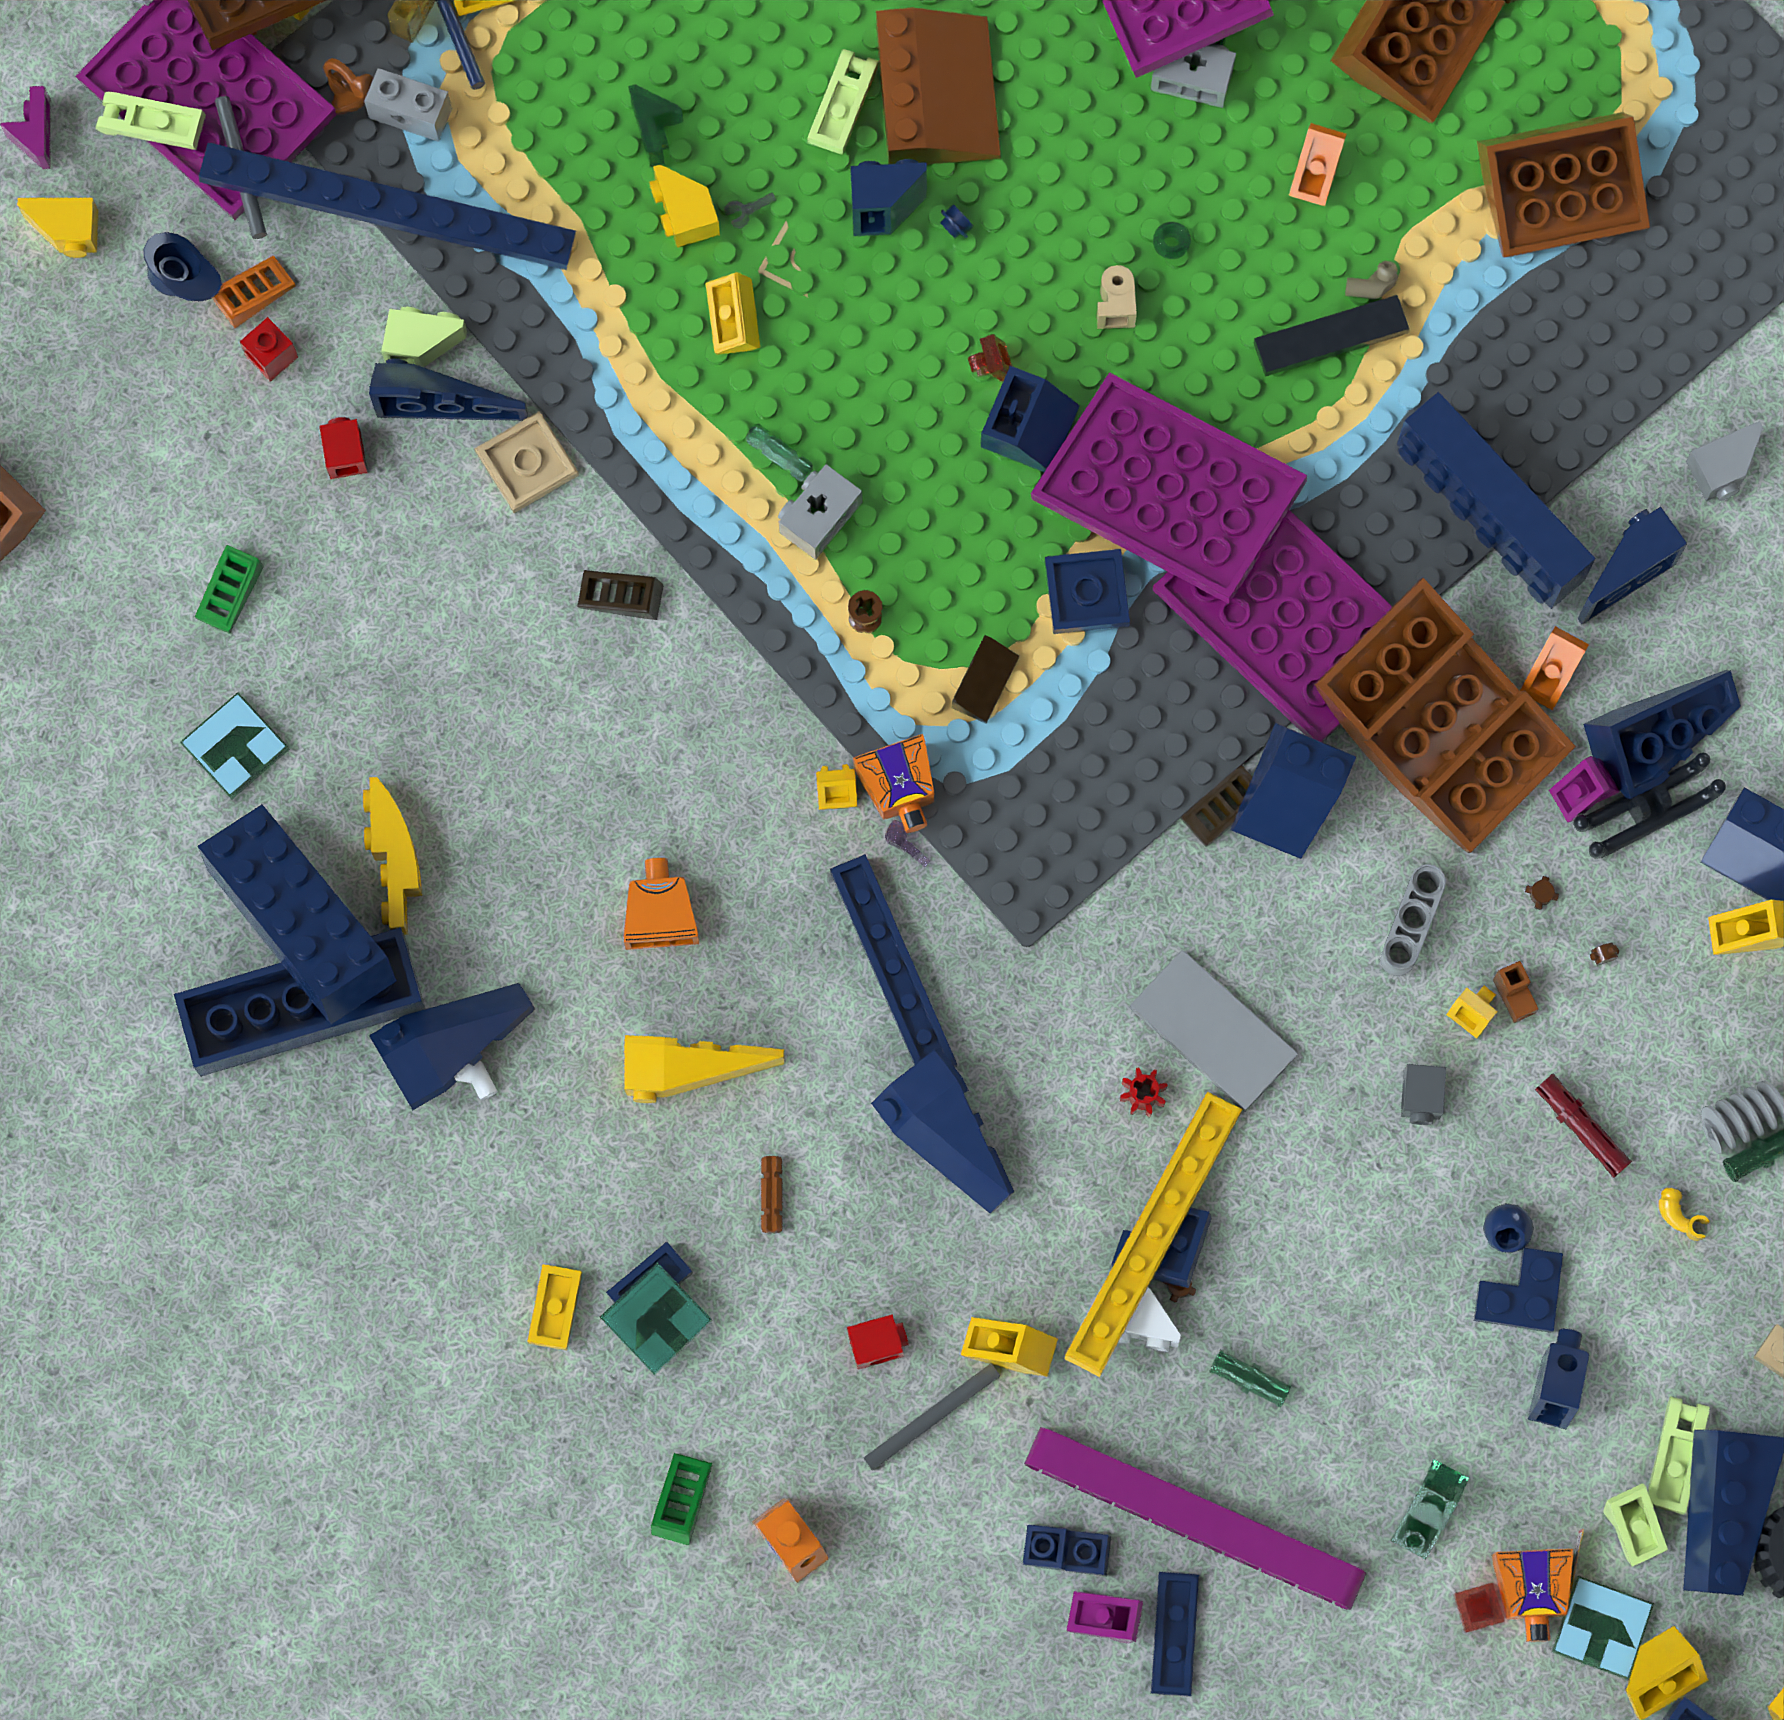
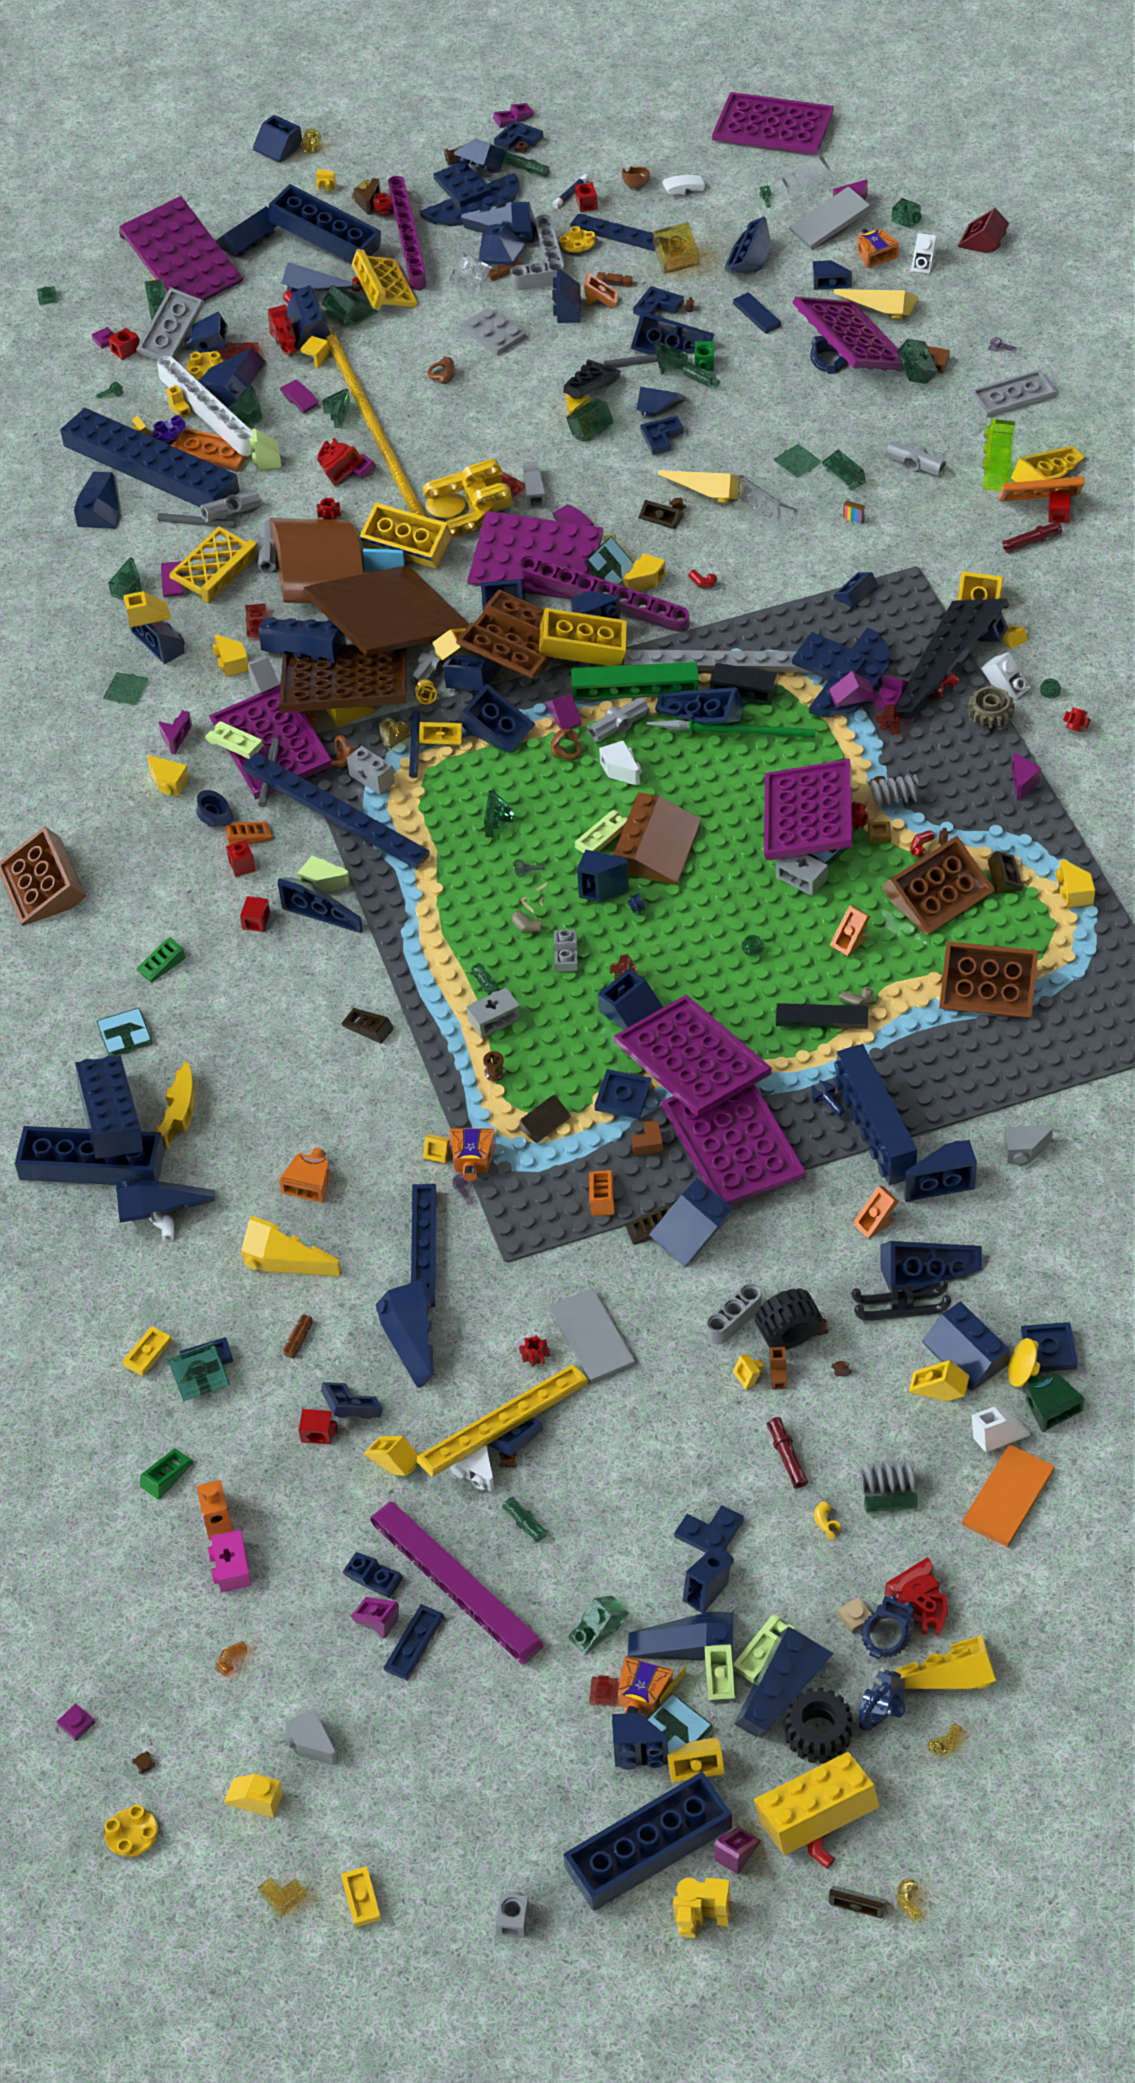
camera: 25 degrees right, 25 degrees down
(526, 462) = (349, 950): tan tile -> none
(687, 207) = (493, 856): yellow slope -> none
(733, 314) = (495, 912): yellow slope -> none
(791, 321) = (524, 924): none -> dark tan arm
(848, 1587) = (229, 1548): none -> dark pink brick
(879, 349) = (565, 950): none -> light grey slope
(905, 1292) = (345, 1404): none -> dark blue plate
(931, 1416) = (330, 1479): dark grey bar -> none
(1119, 299) = (708, 965): tan leg -> none
(1136, 801) = (601, 1194): none -> orange slope
(1165, 659) = (650, 1141): none -> dark orange piece
(1398, 484) = (829, 1089): none -> dark blue bar
(1423, 1093) = (698, 1403): dark grey brick -> none
(1442, 718) = (796, 1212): dark orange slope -> none
(1506, 910) = (788, 1318): none -> black tyre
(1508, 1228) = (716, 1483): dark blue piece -> none
(1567, 1678) = (638, 1742): none -> dark blue slope
(1570, 1472) = (683, 1637): none -> dark blue wedge
(1583, 788) = (866, 1273): magenta slope -> none

